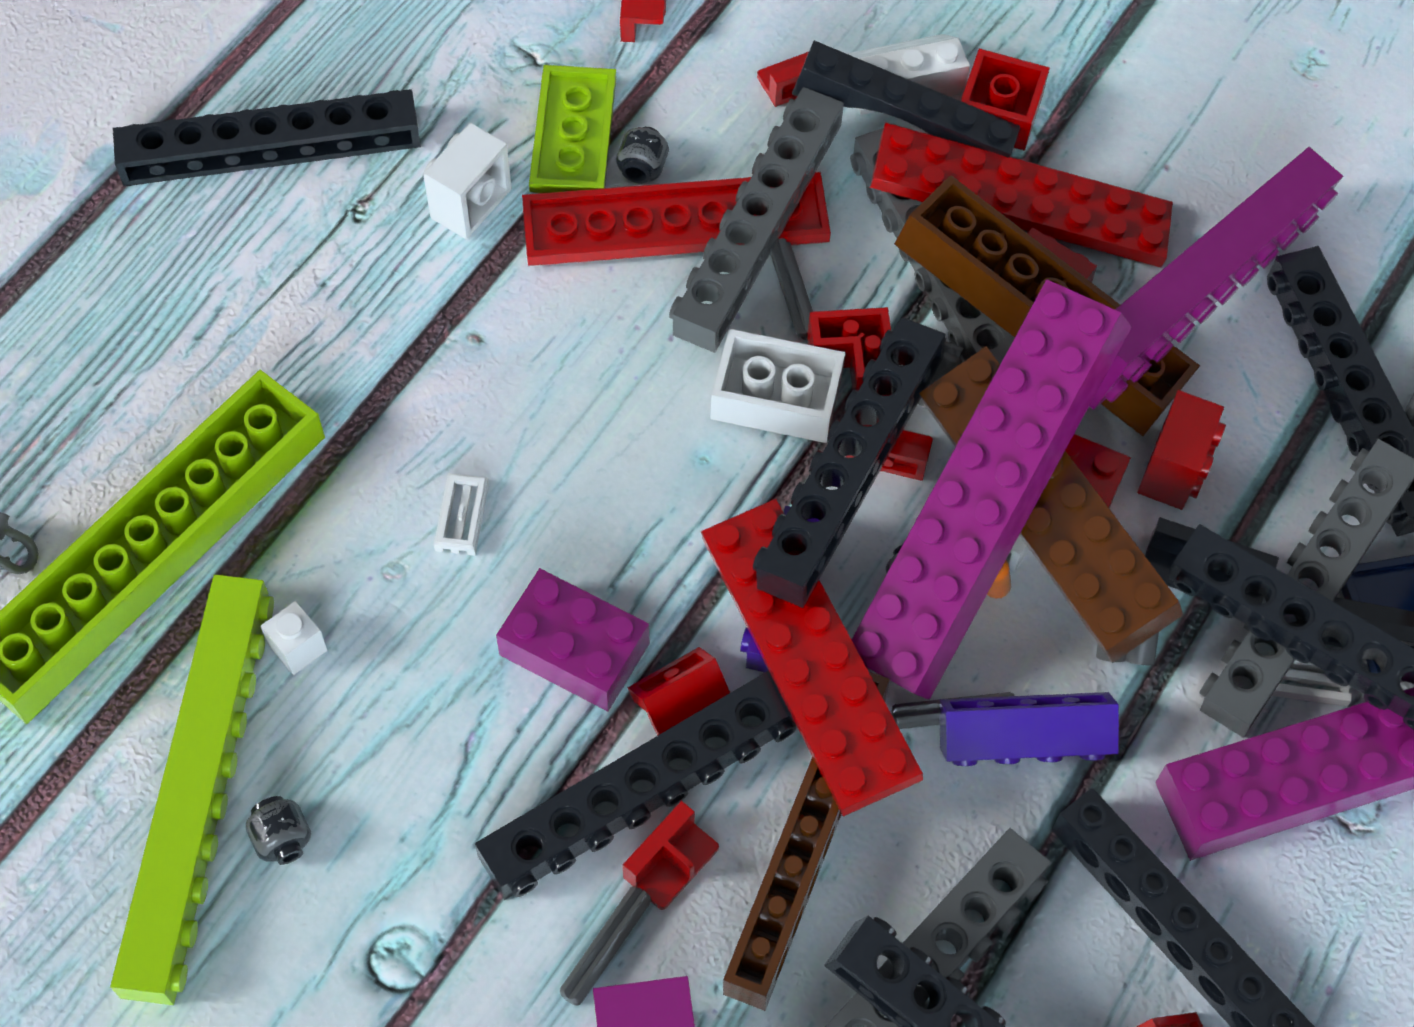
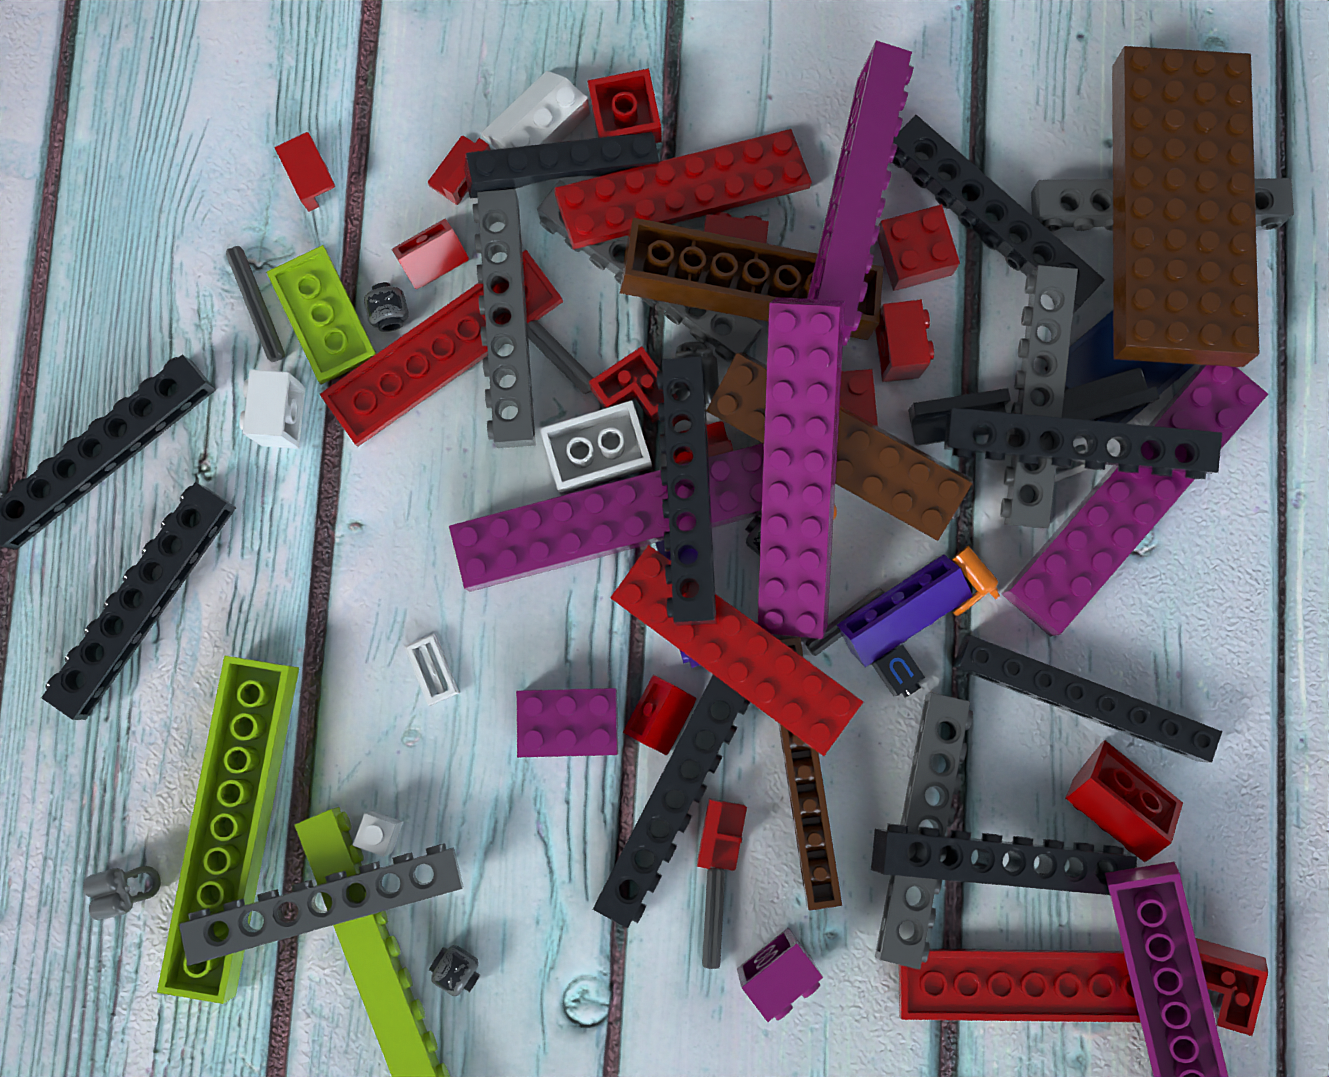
camera: 25 degrees left, 20 degrees up
(47, 603) = (203, 945): none -> dark grey brick
(199, 303) = (118, 648): none -> black brick
(513, 87) = (255, 304): none -> dark grey axle
(719, 133) = (430, 254): none -> panel
(721, 455) = (598, 521): none -> magenta brick
(984, 791) = (899, 672): none -> black brick
(1136, 736) = (978, 575): none -> orange piece
(1251, 374) = (917, 247): none -> red brick

